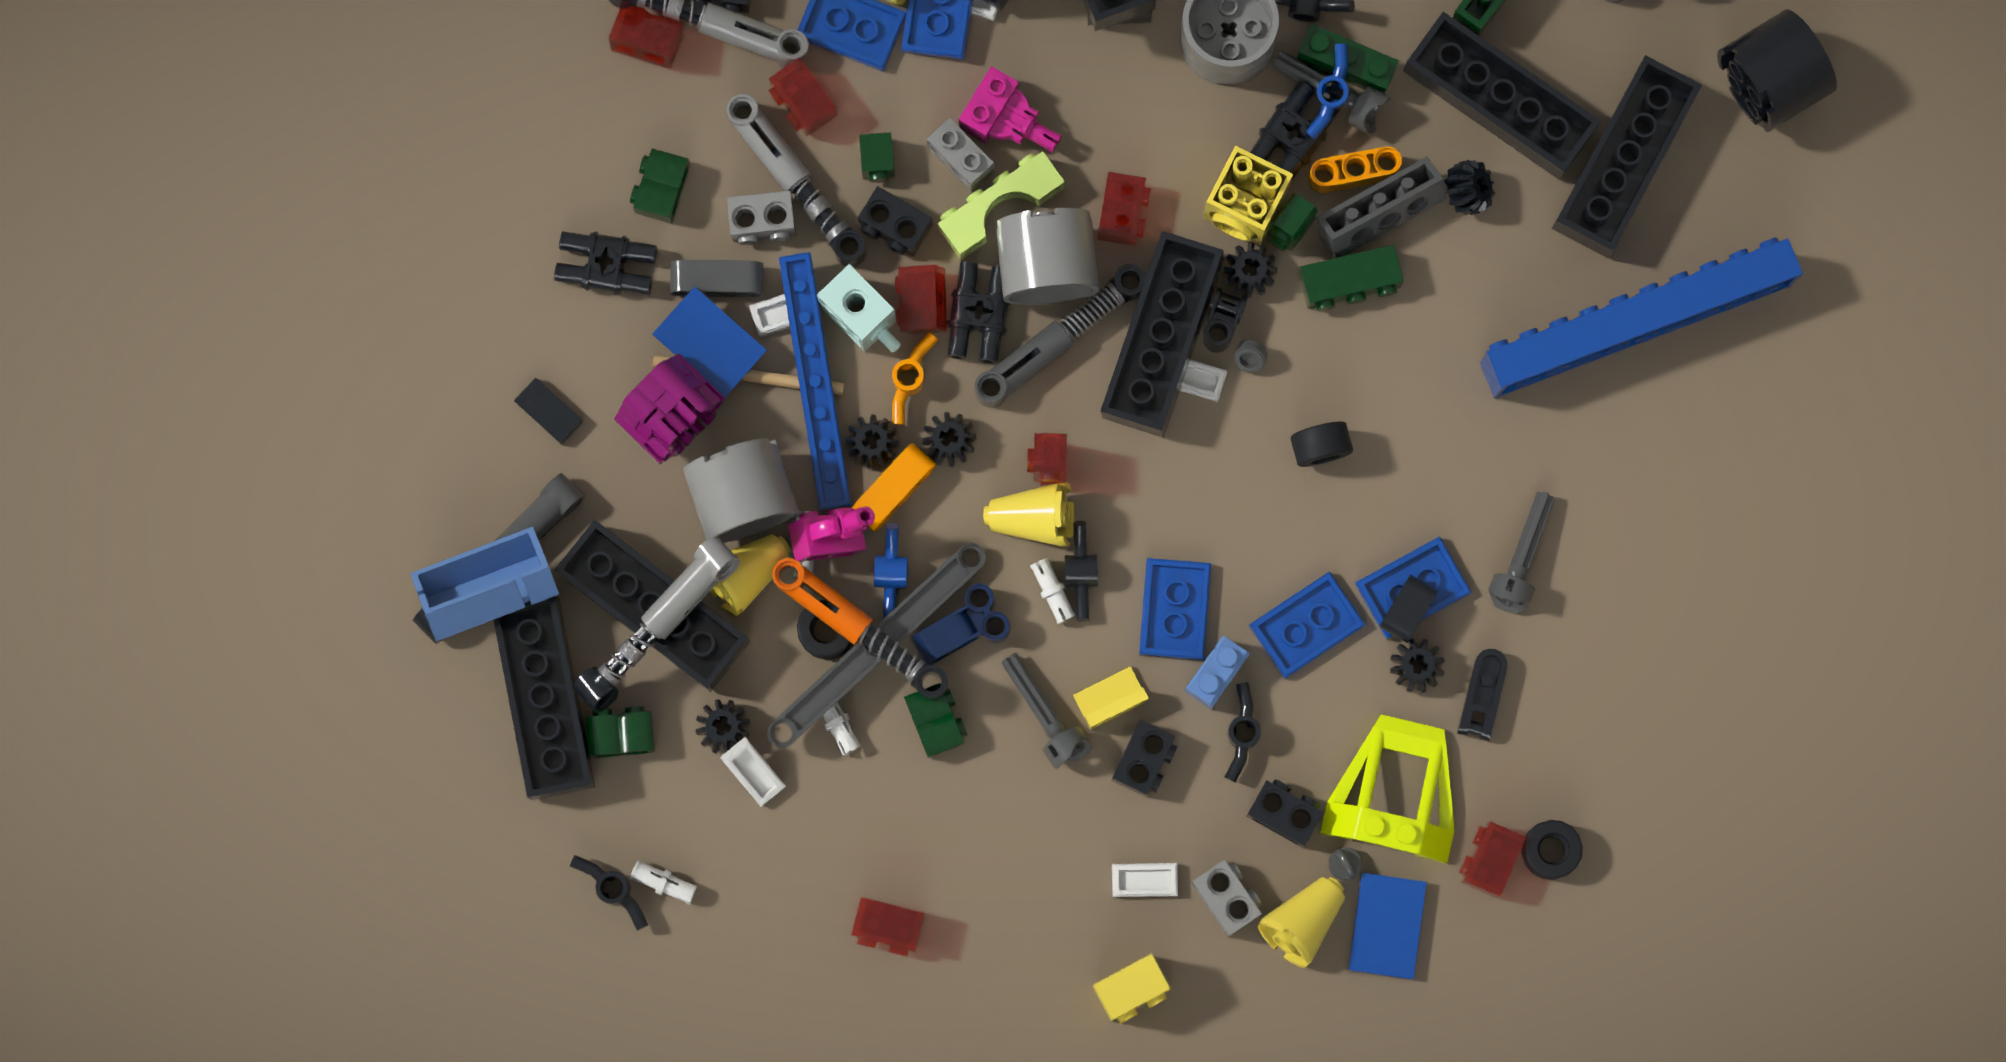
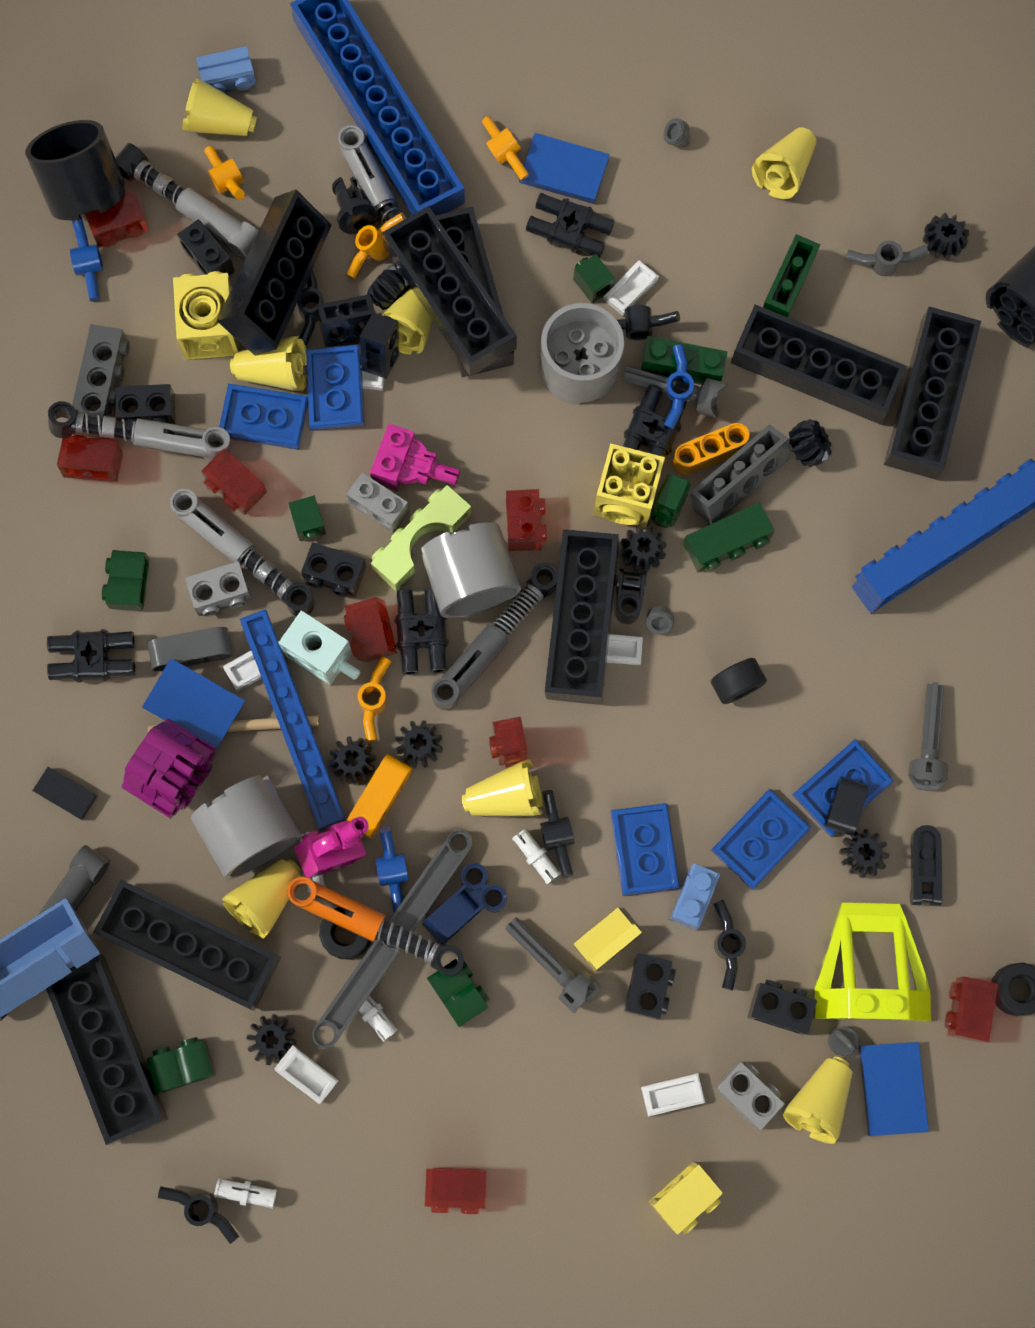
camera: 20 degrees left, 5 degrees down
(711, 565) = (231, 898): piece -> none

